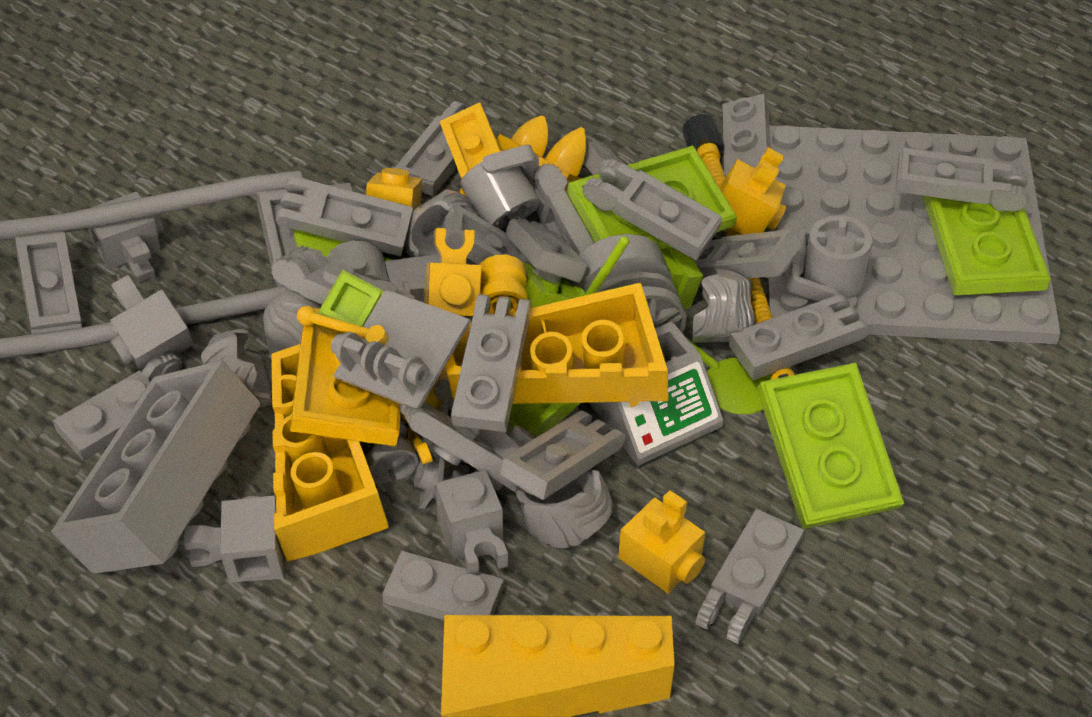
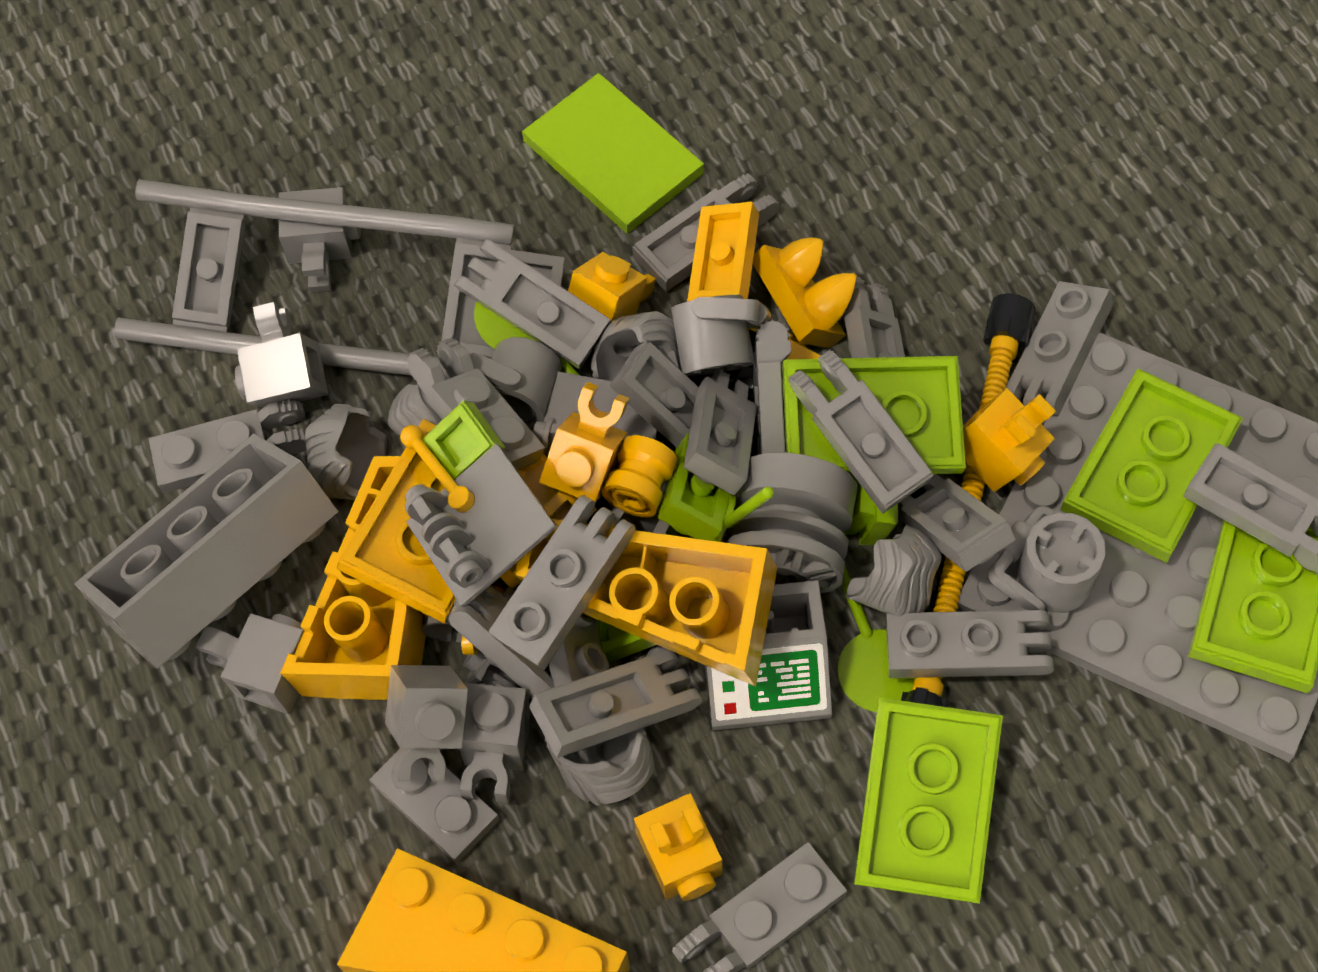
camera: 30 degrees right, 15 degrees up
(339, 120) = (613, 152): none -> lime tile
(418, 507) = (425, 715): none -> light grey brick
(858, 179) = (1145, 463): none -> lime tile

